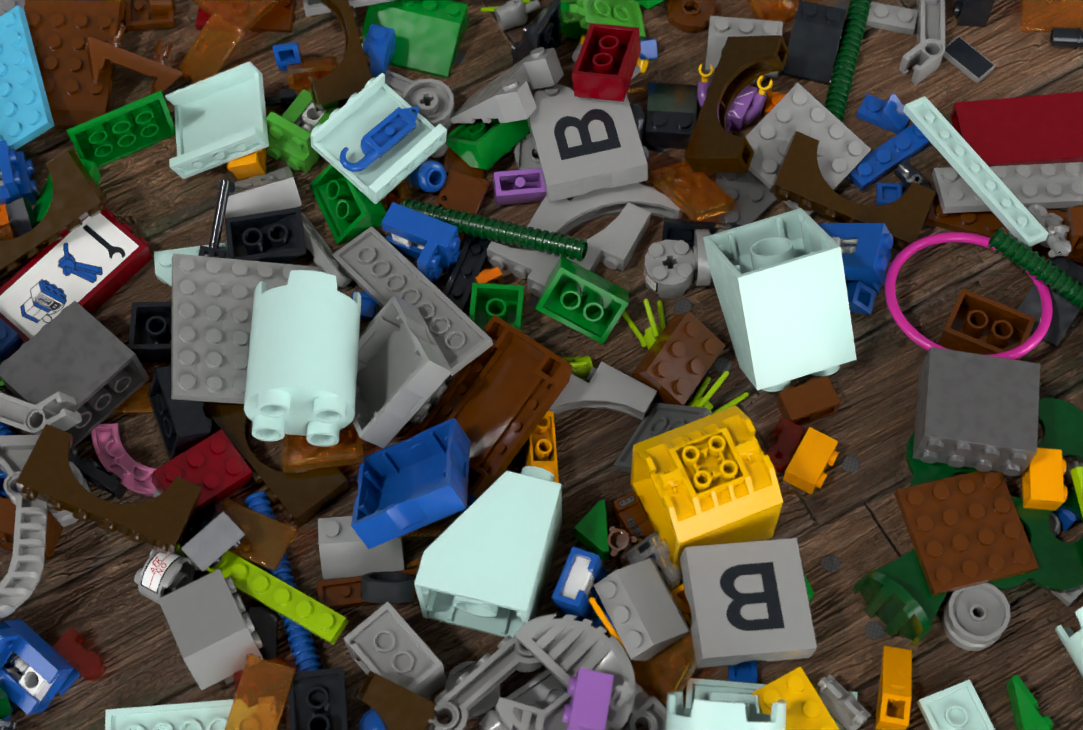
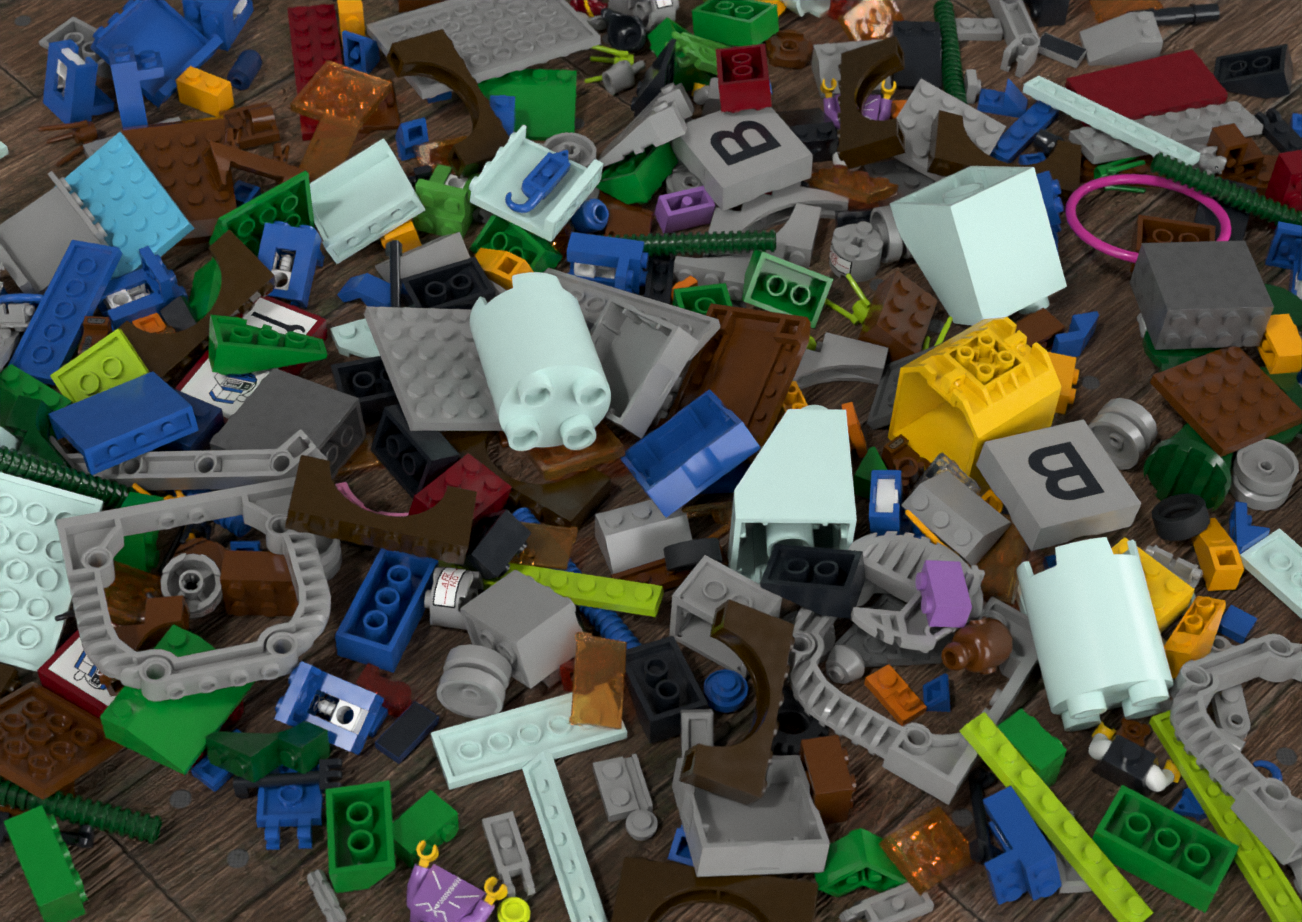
camera: 20 degrees left, 15 degrees down
(66, 269) = (248, 349): none -> green wedge
(89, 700) = (406, 732): none -> black tile
(100, 579) = (386, 609): none -> blue brick
(124, 83) = (245, 192): none -> blue tile
(138, 185) = (291, 246): none -> blue brick
(154, 671) = (474, 681): none -> light grey wheel
(198, 217) = (369, 288): none -> blue slope
(325, 224) = (501, 266): none -> light orange slope
(479, 652) = (816, 578): none -> black slope
(591, 477) = (855, 432): none -> orange plate
(848, 540) = (1124, 431): none -> light grey wheel
(858, 90) = (972, 85): none -> light grey plate
(860, 406) = (1080, 332): none -> blue slope
(874, 661) = (1180, 517): none -> black tyre
(929, 680) = (1241, 530): none -> blue slope
(954, 224) = (1113, 169): none -> green plant
(1035, 62) = (1122, 40): none -> light grey slope

